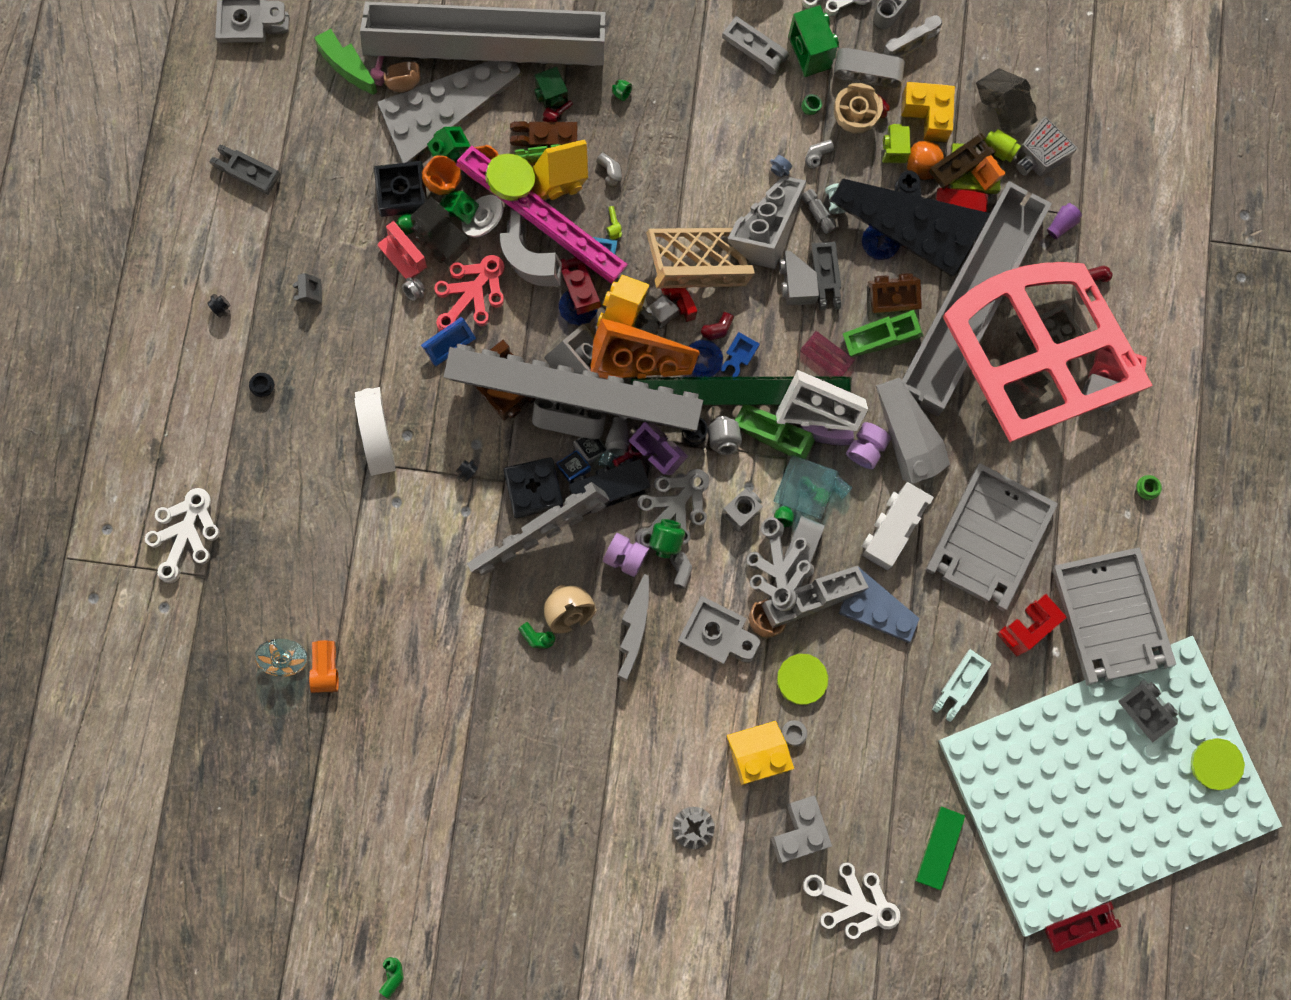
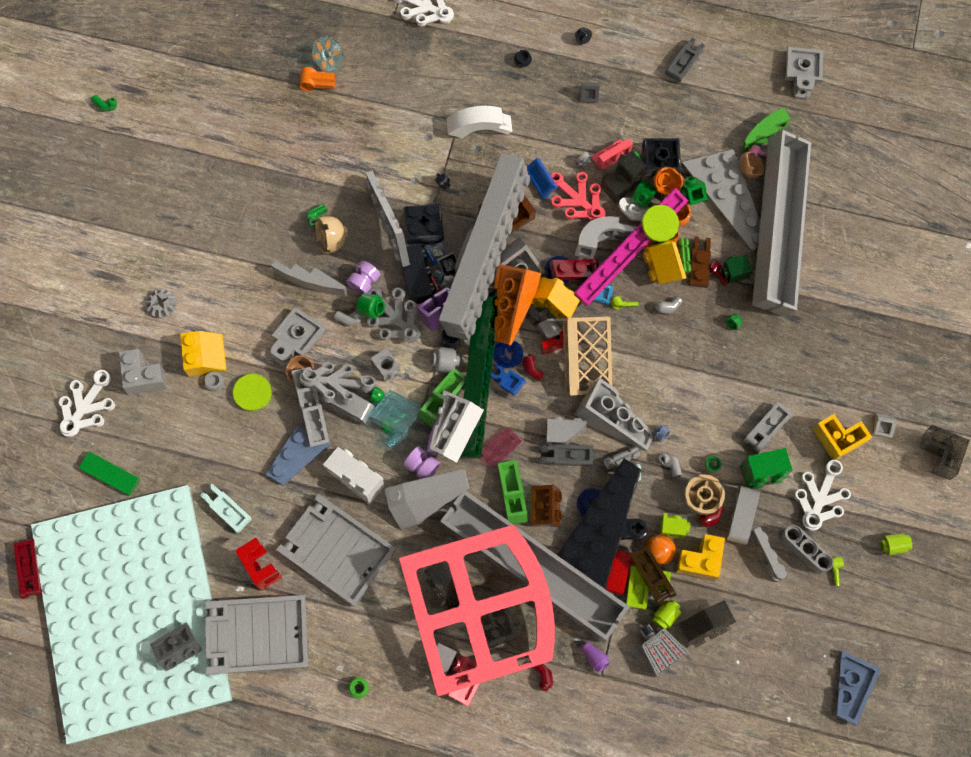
camera: 105 degrees right, 5 degrees down
(988, 172) = (640, 593): orange tile -> none
(1217, 764) = (123, 696): lime tile -> none

